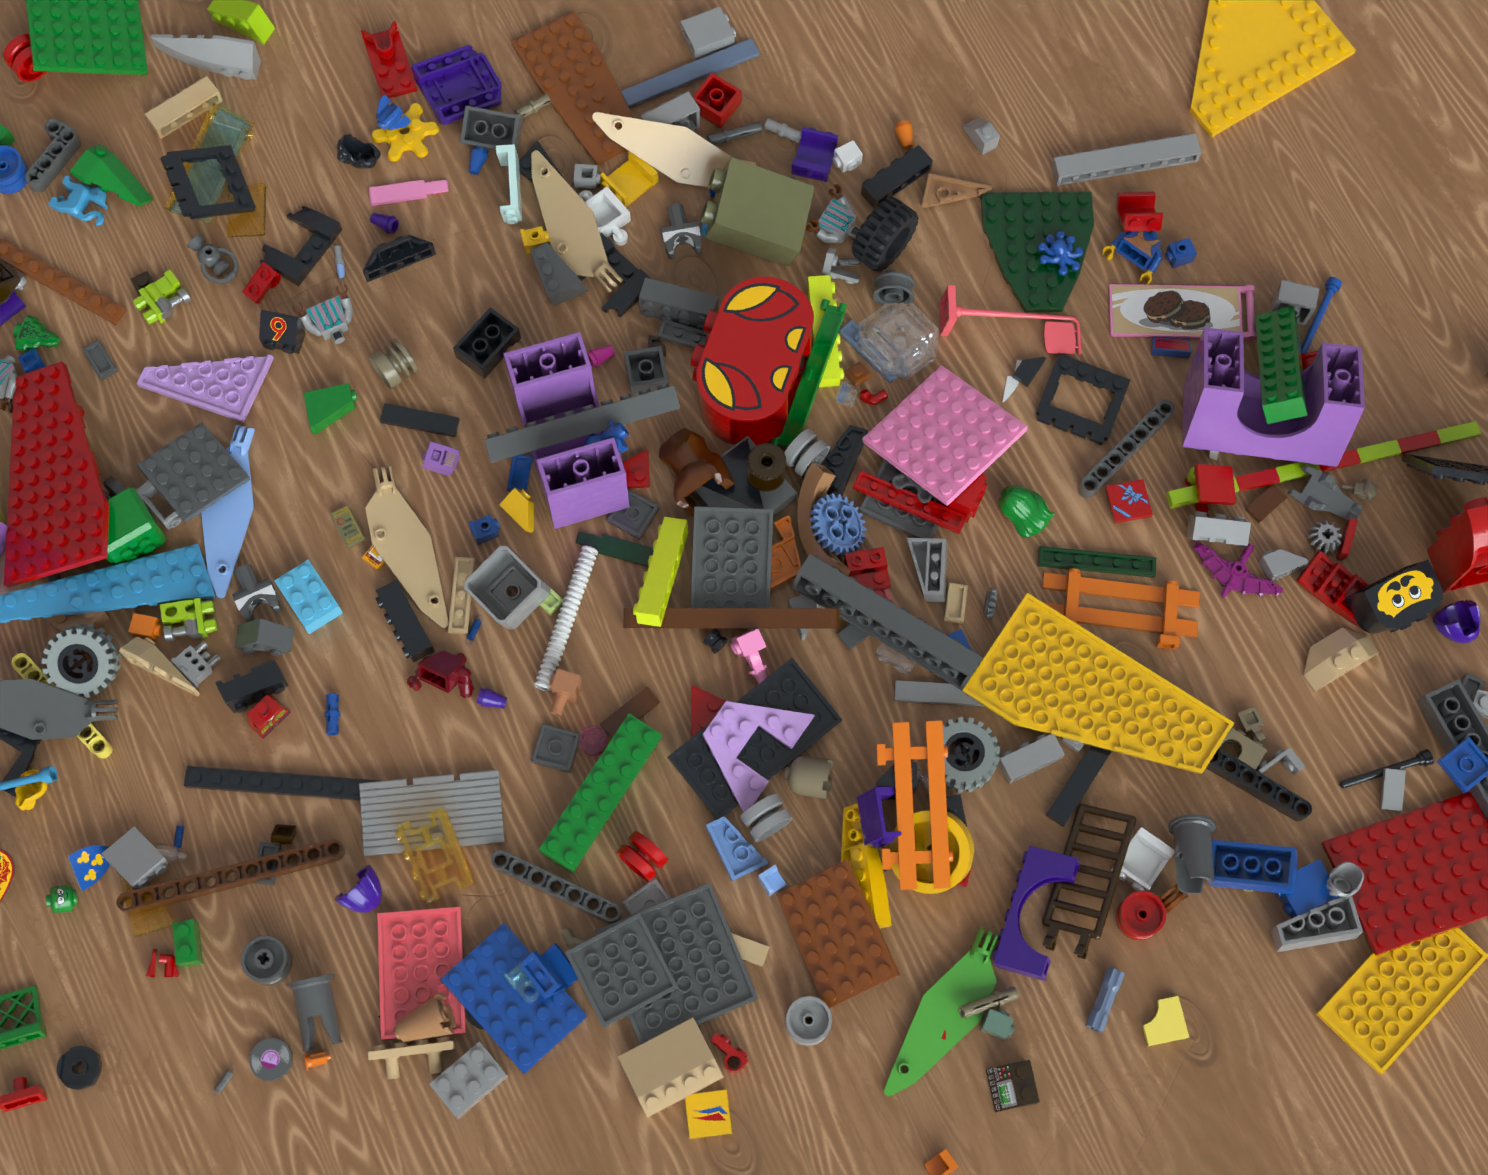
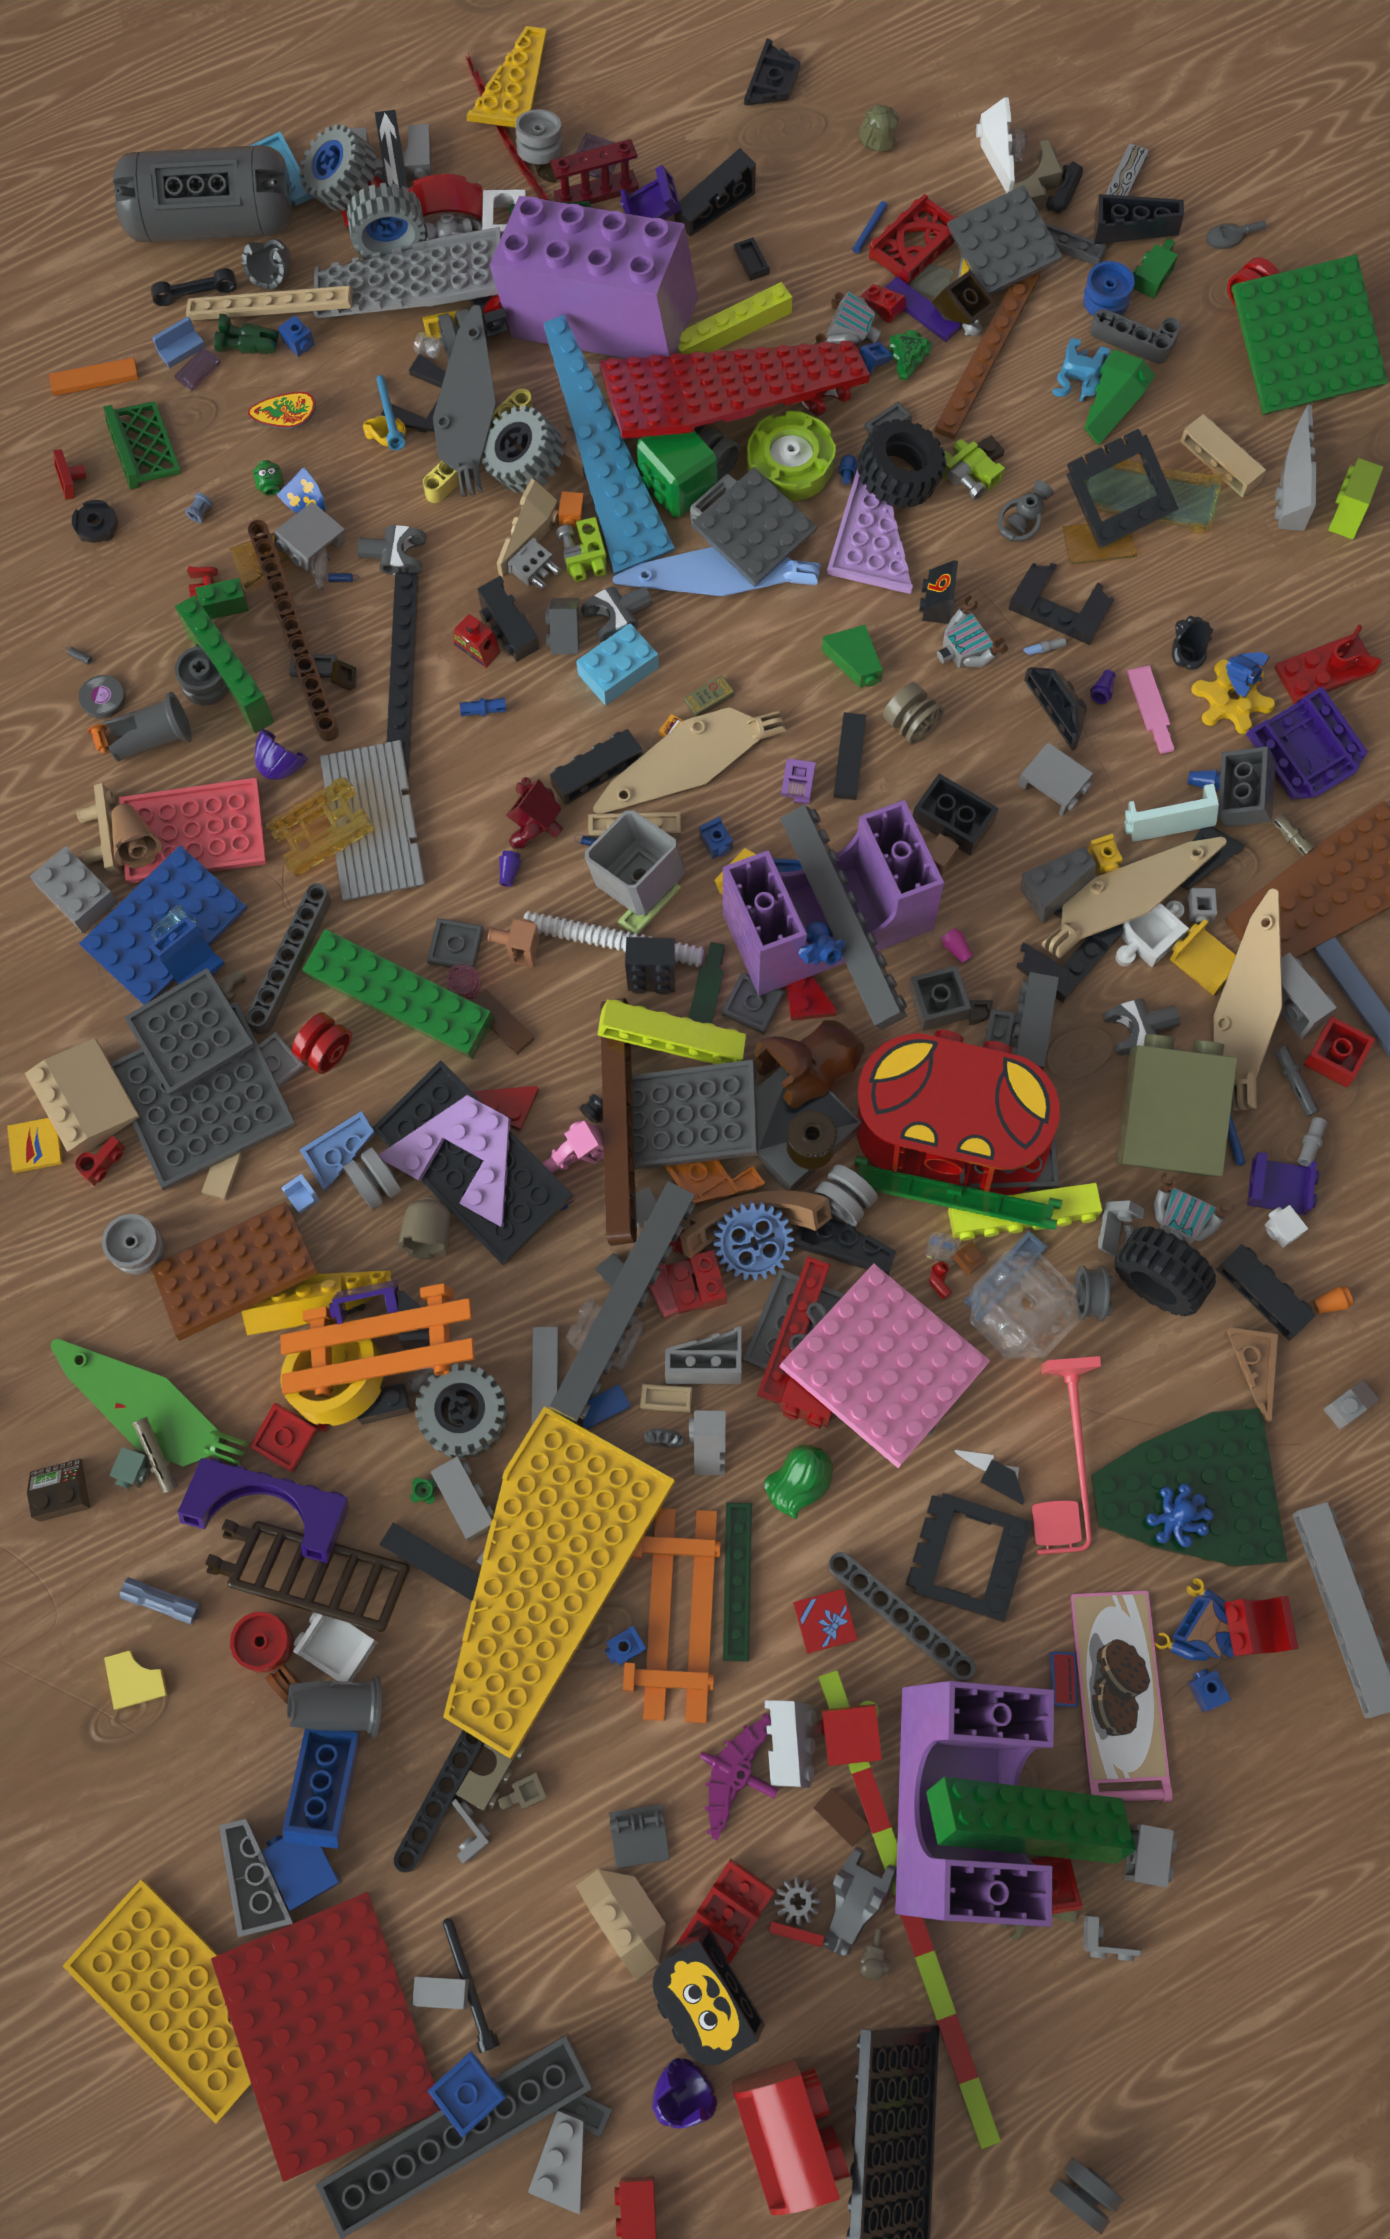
camera: 90 degrees right, 0 degrees up
(82, 966) = (198, 507): none -> sand blue bush
(123, 436) = (793, 453): none -> lime piece
(142, 395) = (847, 468): none -> blue cylinder
(155, 365) = (911, 444): none -> black tyre
(159, 787) = (393, 549): none -> dark grey connector
(220, 958) = (243, 688): none -> green arch
(261, 282) = (1007, 567): red plate -> none
(462, 265) = (1057, 777): none -> light grey panel
(601, 582) = (650, 965): none -> black brick
(976, 899) = (283, 1437): none -> red tile
(995, 567) = (708, 1436): none -> light grey wedge
(1026, 786) = (418, 1485): none -> green plate
(1143, 650) = (635, 1648): none -> blue brick
(1280, 563) = (751, 1834): light grey slope -> none
(1280, 643) = (639, 1836): none -> dark grey hinge
(1332, 286) = (1189, 1920): blue piece -> none
(1345, 880) = (302, 1911): light grey hair -> none
(1355, 328) = (1093, 1933): none -> light grey bracket

